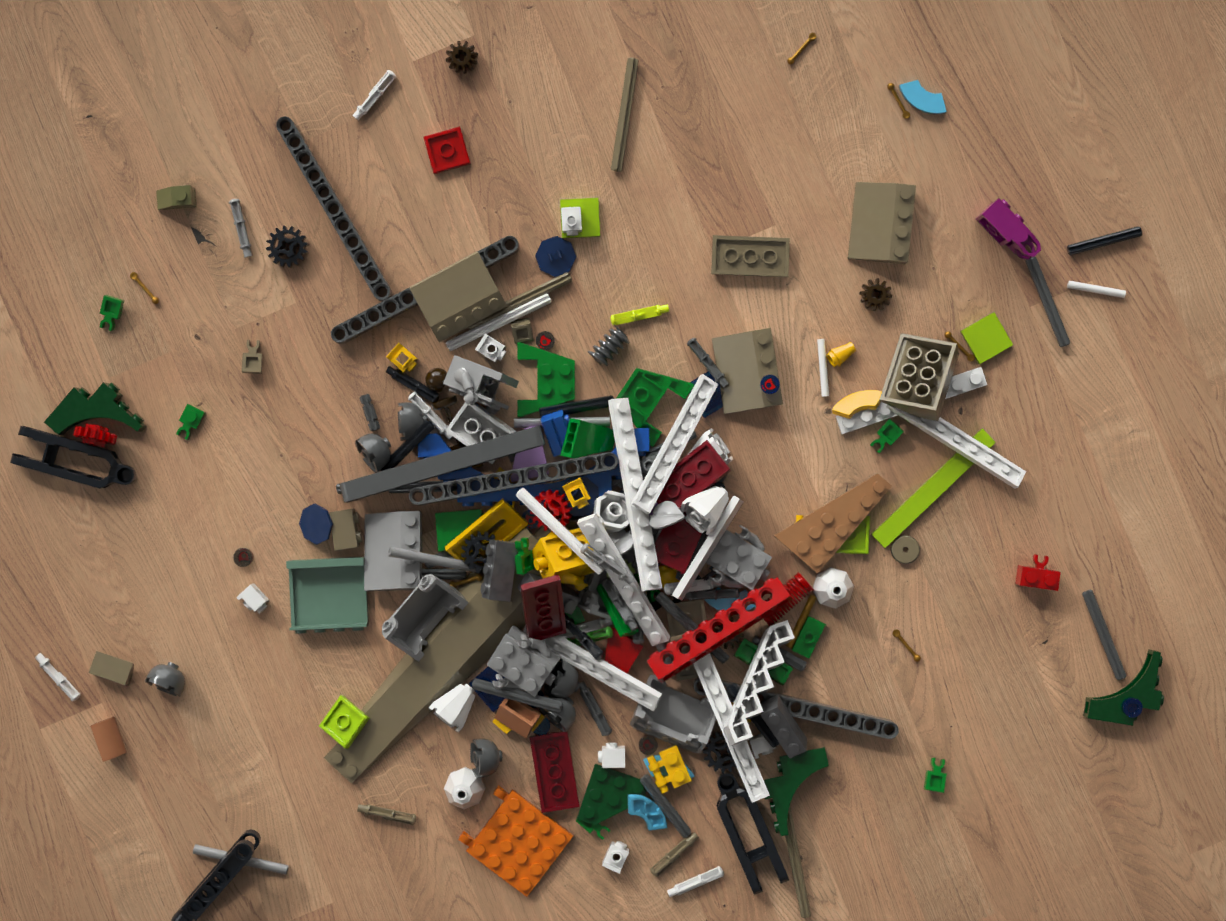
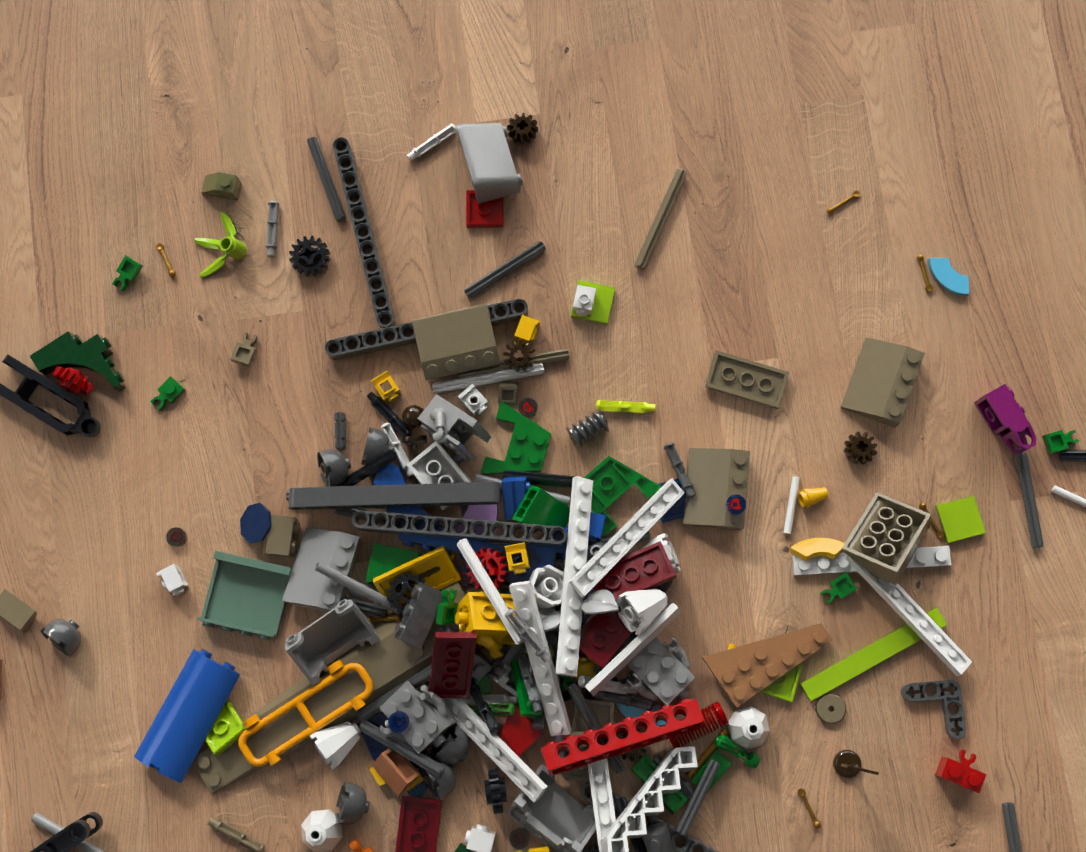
camera: 20 degrees right, 10 degrees down
(204, 259) = (229, 246): none -> lime plant
(278, 161) = (326, 179): none -> dark grey axle
(308, 719) = (187, 715): none -> blue cylinder
(436, 642) = (254, 724): none -> light orange bar
(437, 101) = (489, 160): none -> light grey windscreen
(481, 664) = (374, 707): none -> dark grey axle
(484, 208) = (504, 269): none -> dark grey axle
(508, 673) = (398, 721): none -> clear blue tile
(519, 298) = (514, 360): none -> dark brown gear
(523, 265) = (527, 330): none -> yellow window
(555, 256) = (559, 331): dark blue piece -> none
(594, 709) = (475, 786): dark grey piece -> none
(614, 709) = (495, 791): none -> black gear
(802, 664) = (697, 798): none -> dark grey axle
(814, 608) = (724, 743): none -> green piece
(933, 596) = (848, 764): none -> dark brown piece
(1010, 510) = (947, 699): none -> dark grey beam
(1063, 237) = (1058, 441): none -> green plate

